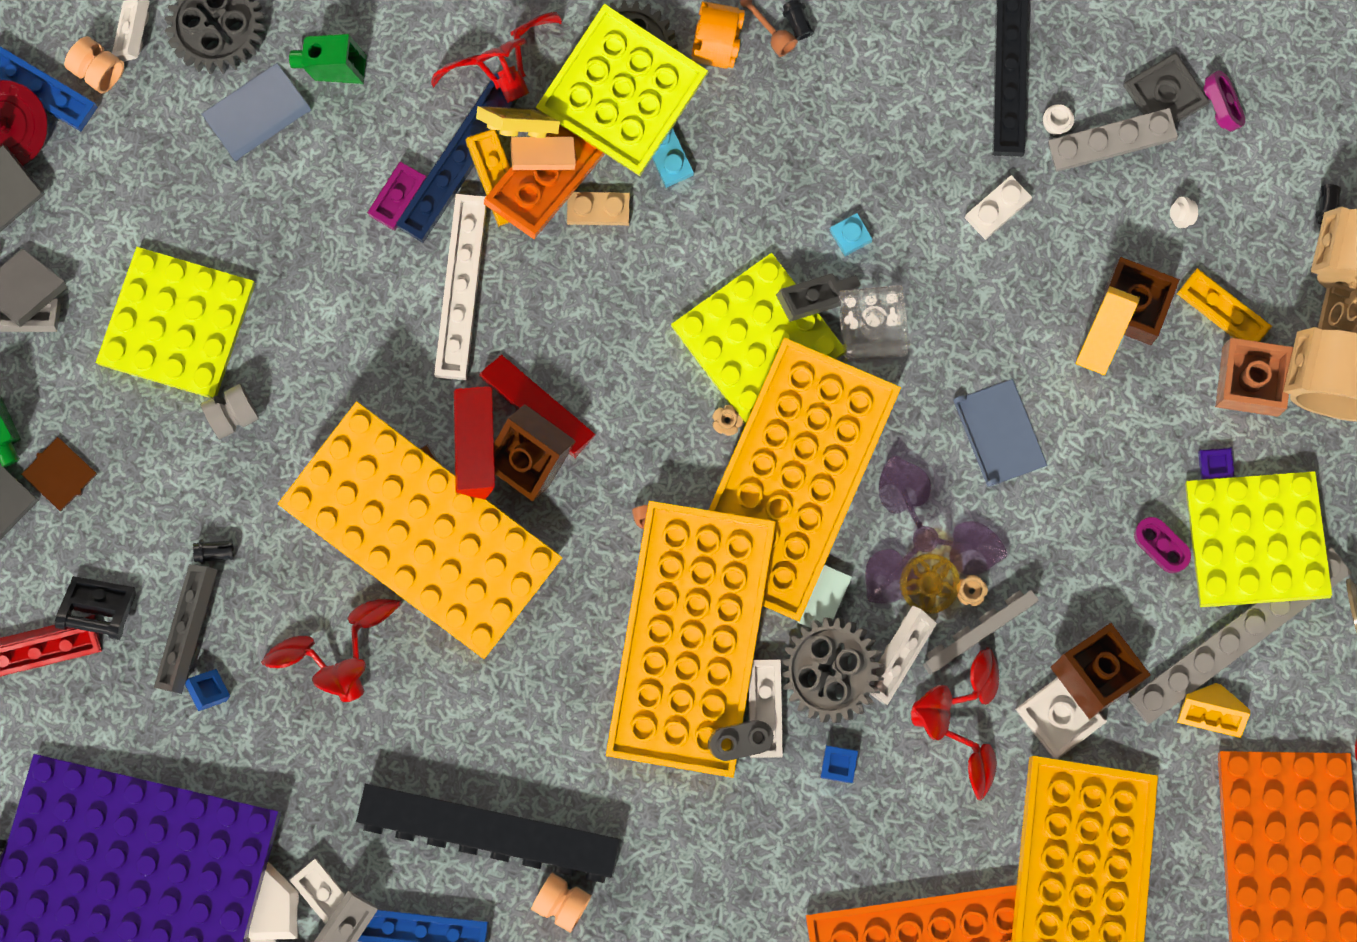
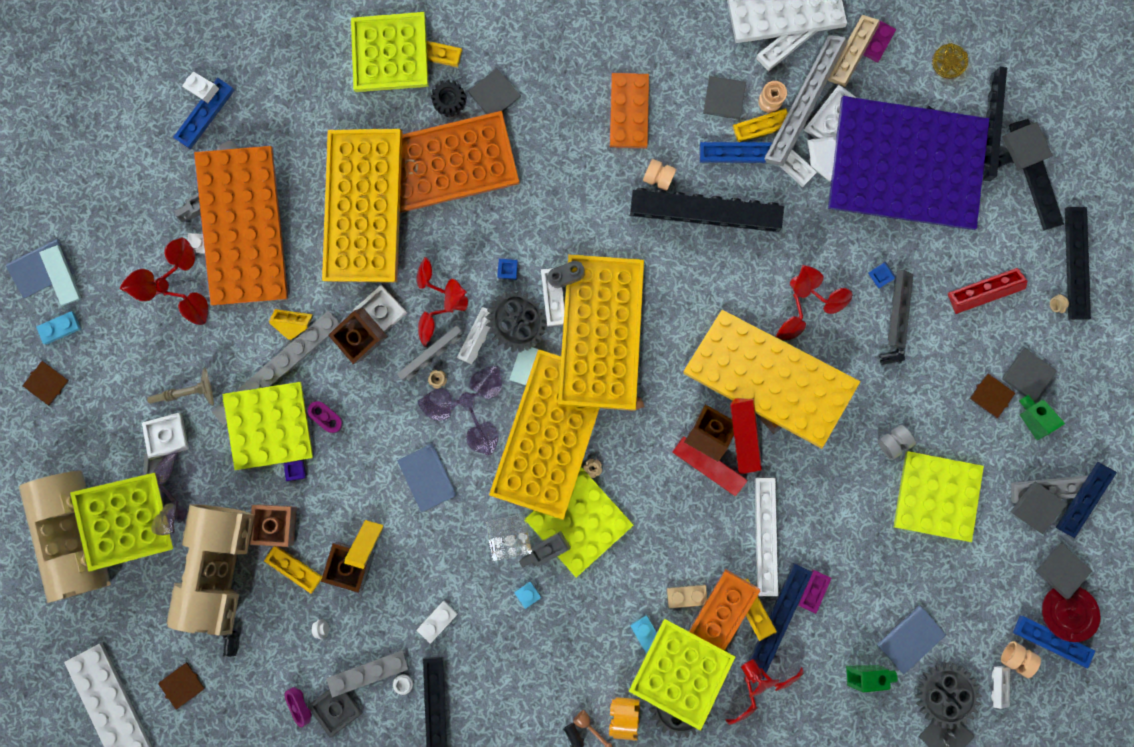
camera: 170 degrees right, 5 degrees up
(98, 599) = (956, 321): black plate -> none
(516, 120) = (745, 646): light yellow plate -> none
(543, 153) = (727, 626): light nougat tile -> none
(930, 583) = (462, 379): clear yellow wheel -> none

